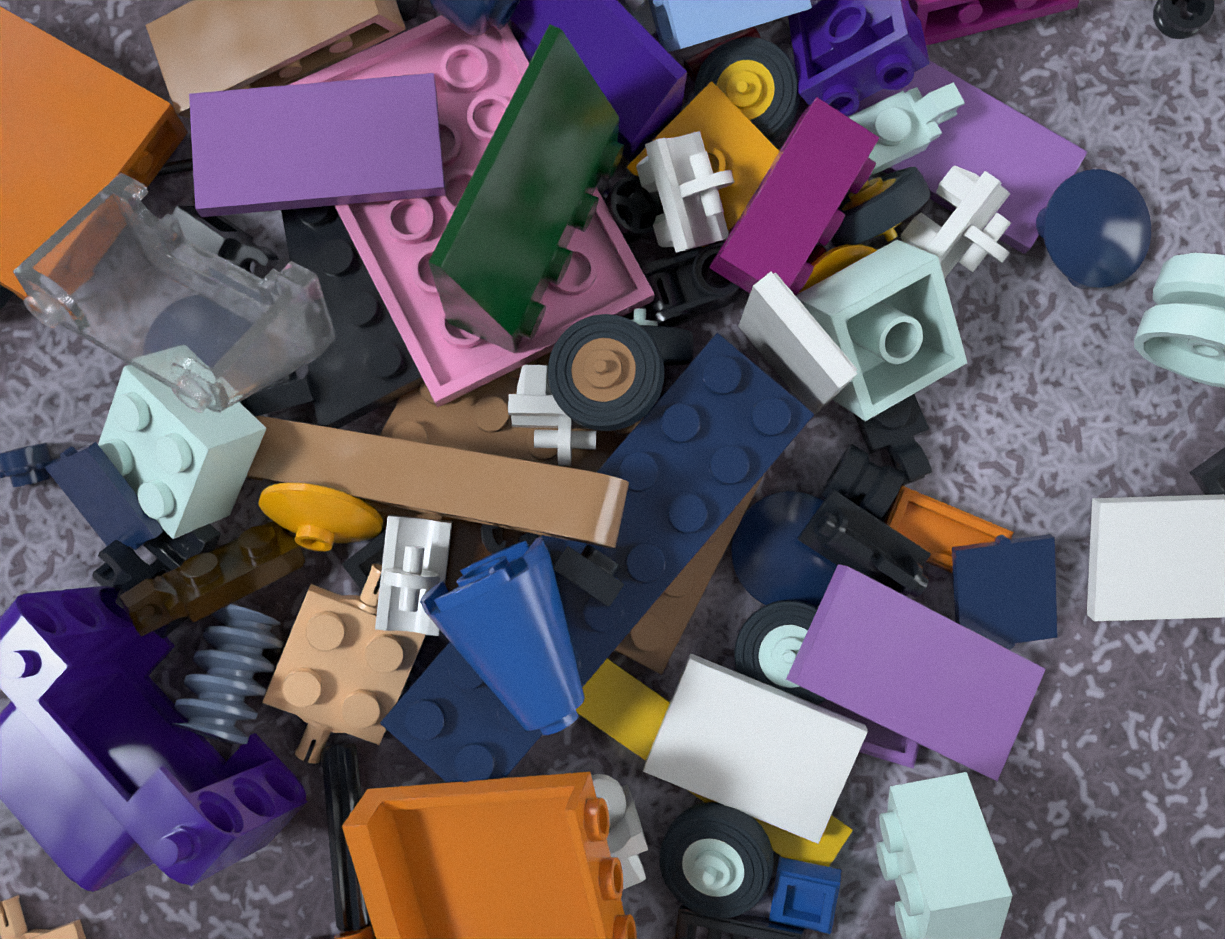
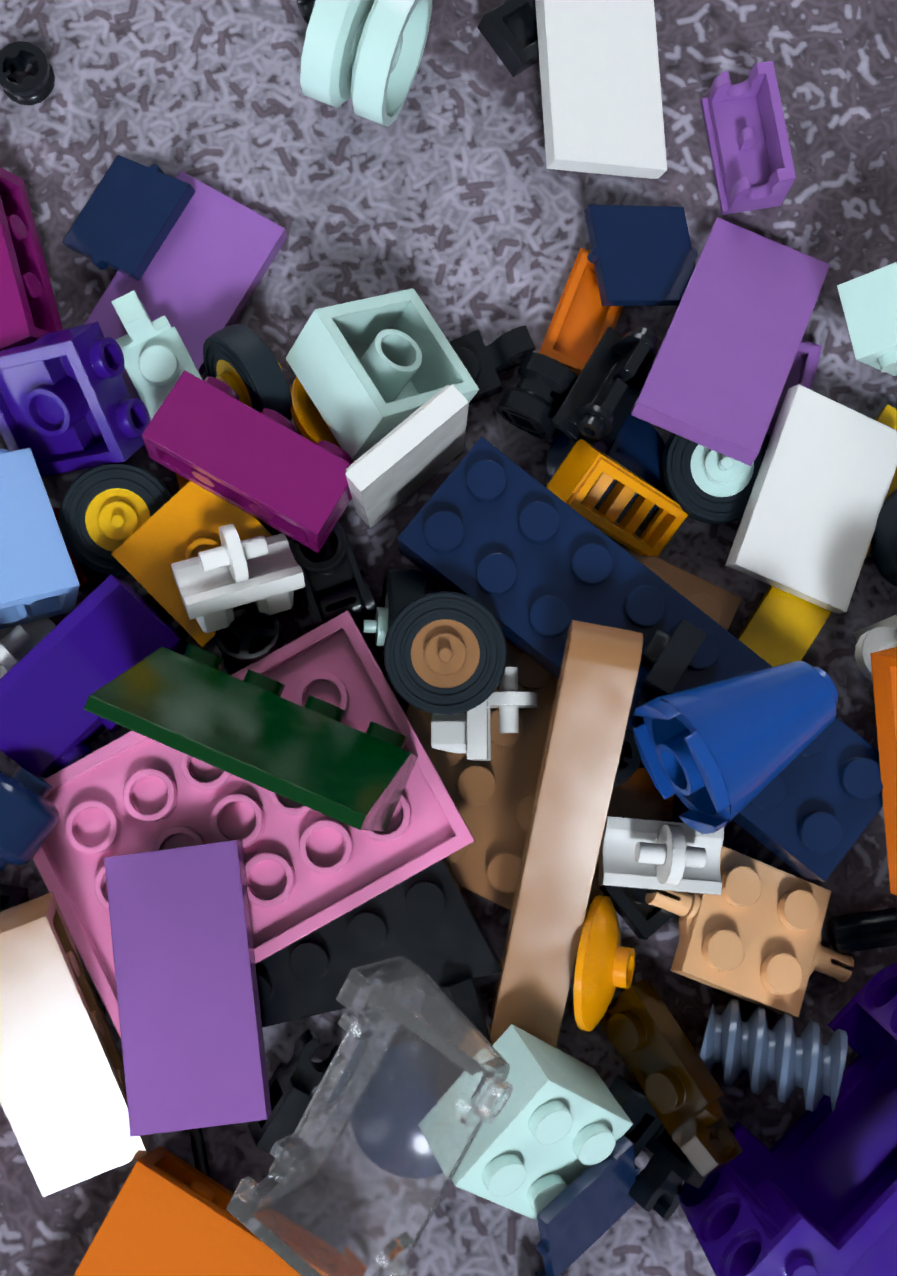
camera: 90 degrees left, 0 degrees up
(775, 521) = (584, 480): none -> light orange slope
(975, 205) = (240, 279): white hips -> none
(1040, 104) = (128, 217): none -> dark blue piece
(1096, 228) = (263, 163): dark blue dish -> none
(1125, 702) = (748, 141): none -> medium lavender hinge

